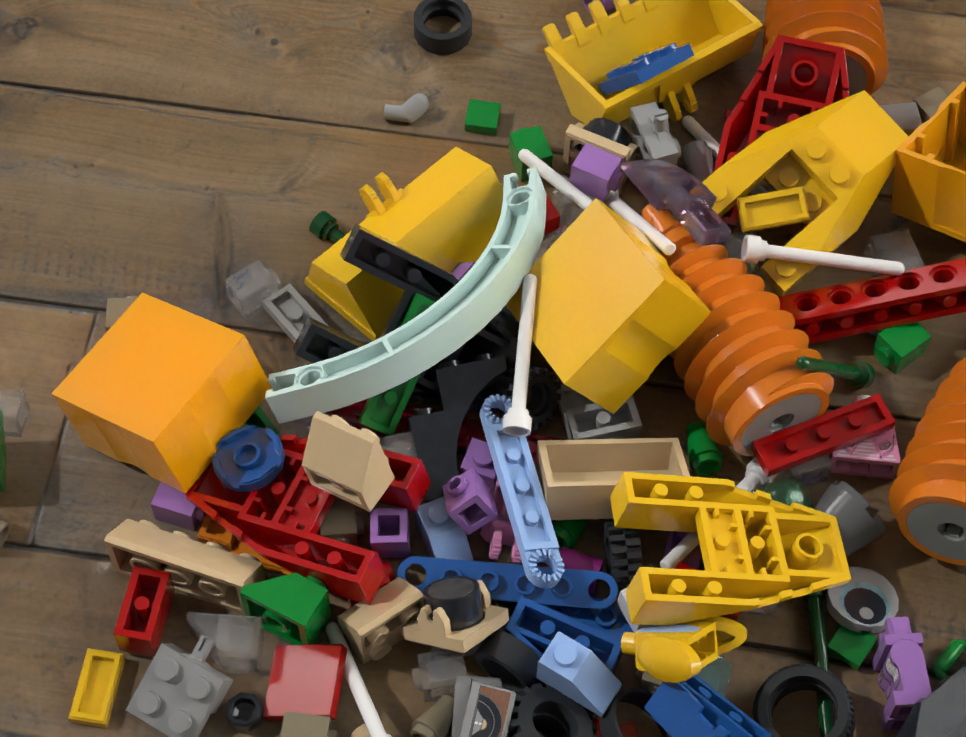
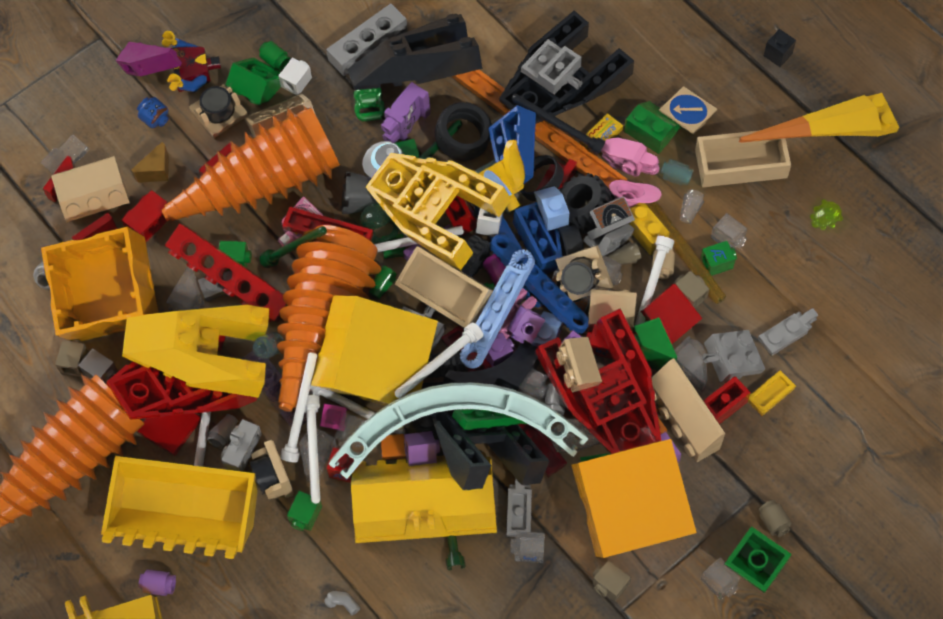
camera: 135 degrees left, 5 degrees up
(244, 712) = (709, 325): black tile -> none
(248, 458) = (616, 429): blue tile -> none
(482, 117) = (304, 562): green tile -> none
(596, 172) = (291, 452): medium lavender brick -> none
(645, 67) = (203, 488): blue plate -> none
(682, 193) = (272, 386): slope -> none
(756, 249) = (267, 324): white piece -> none
(772, 209) = (231, 344): yellow tile -> none

